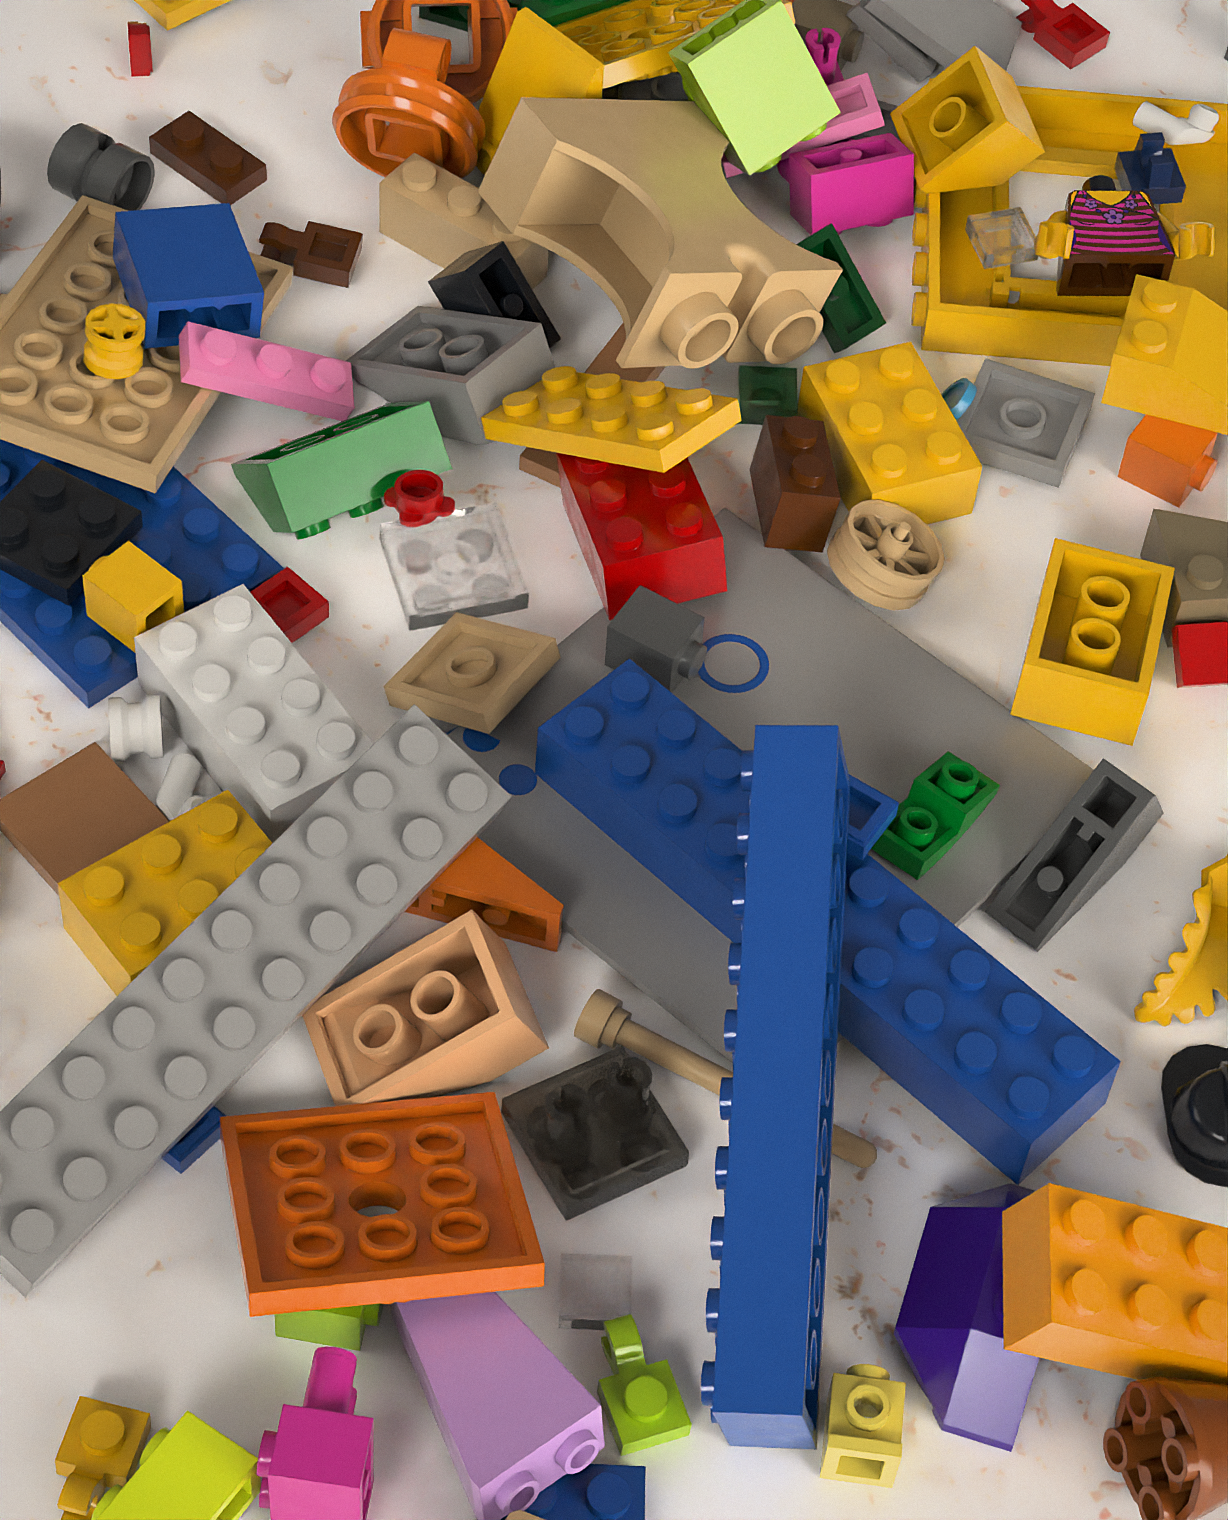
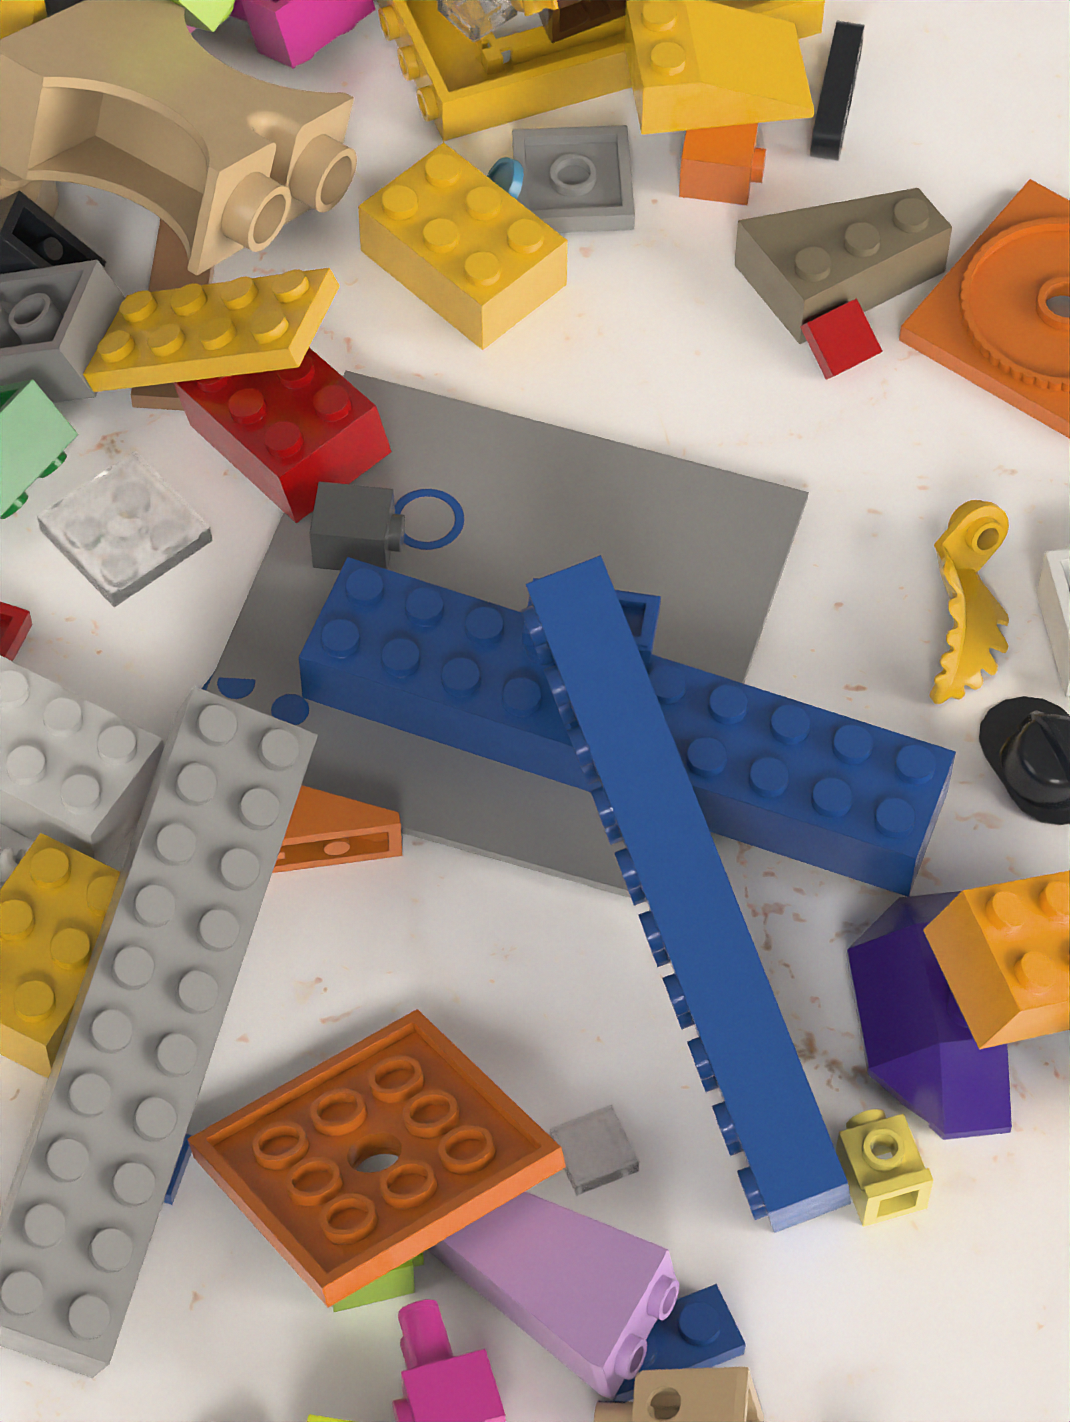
camera: 20 degrees left, 5 degrees up
(419, 498) = (65, 477): red plate -> none
(426, 1019) = (326, 970): light nougat slope -> none
(472, 672) = (199, 625): tan plate -> none
(595, 1132) = (524, 1006): clear smoke plate -> none
(609, 1024) = (487, 904): tan piece -> none
(638, 1397) = (678, 1222): lime plate -> none
(766, 392) = (330, 242): clear green plate -> none
(794, 483) = (402, 323): reddish brown brick -> none
(850, 308) = (369, 127): dark green slope -> none
(885, 555) = (522, 361): tan wheel -> none
(935, 814) = (684, 577): green slope -> none
(1076, 855) = (818, 577): dark grey slope -> none
(1093, 642) = (742, 369): yellow brick -> none

